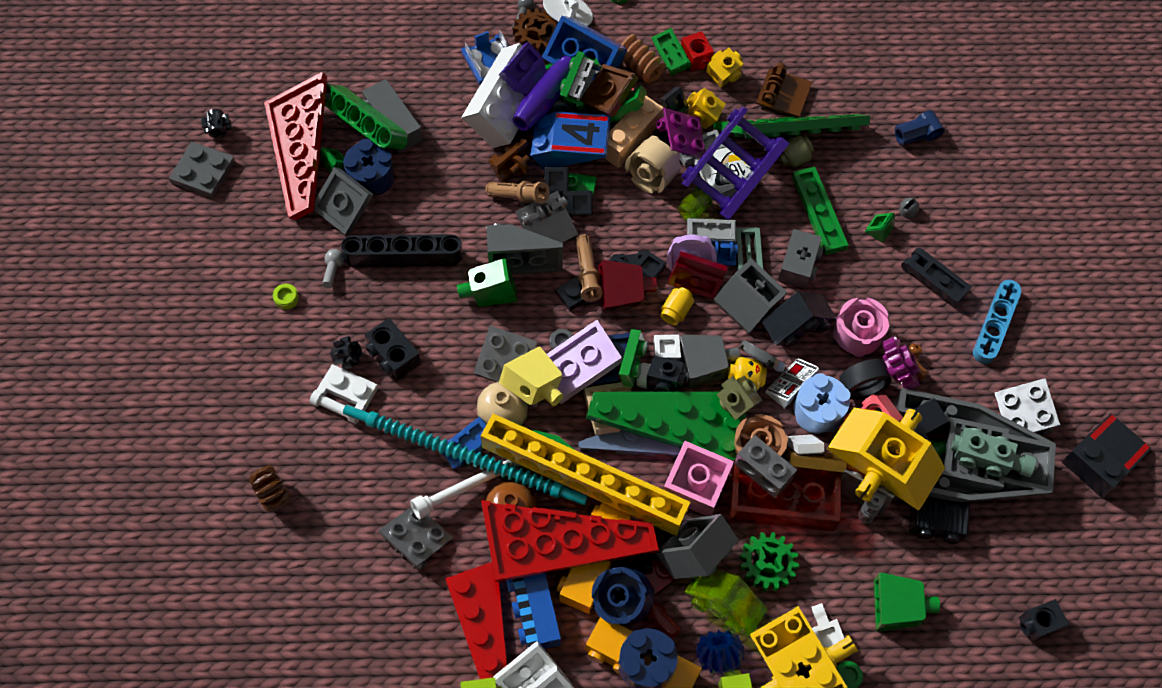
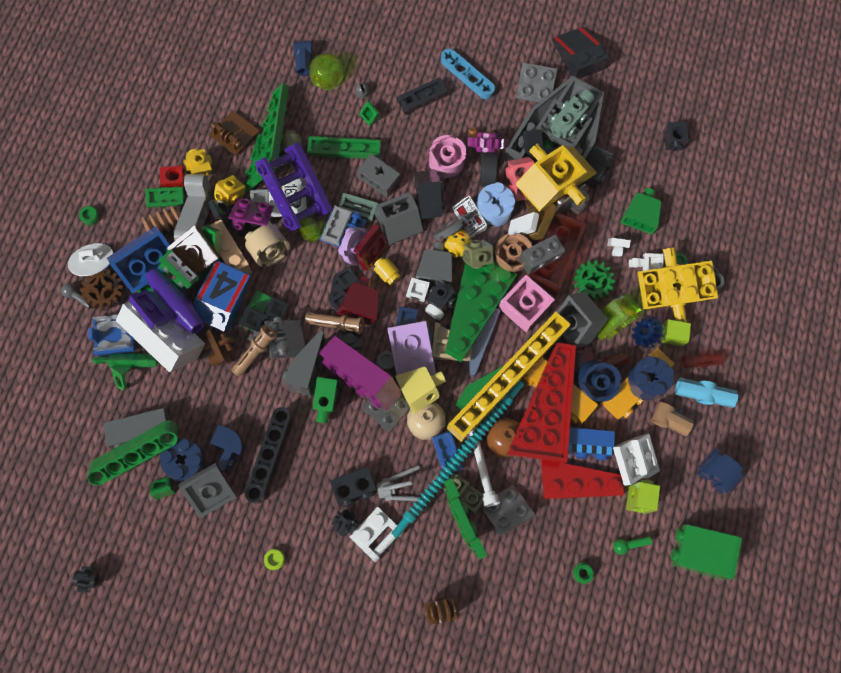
camera: 75 degrees left, 10 degrees up
(202, 169) = (125, 602): dark grey plate -> none
(296, 134) = (124, 511): wing -> none
(333, 259) = (254, 512): light grey bar -> none
(362, 646) = (589, 573): none -> green plate
(386, 476) = (459, 513): none -> green wing
(402, 211) = (231, 444): none -> dark blue brick
(402, 389) = (387, 488): none -> light grey plant
(423, 476) = (468, 494): none -> olive slope
(460, 76) = (123, 363): none -> green piece
(525, 305) = (360, 373): none -> magenta brick
(631, 363) = (418, 309): green plate -> none
(660, 80) = (196, 205): none -> light grey beam
(834, 582) = (618, 245): none -> white tile
(913, 160) = (326, 71): none -> clear neon green cylinder

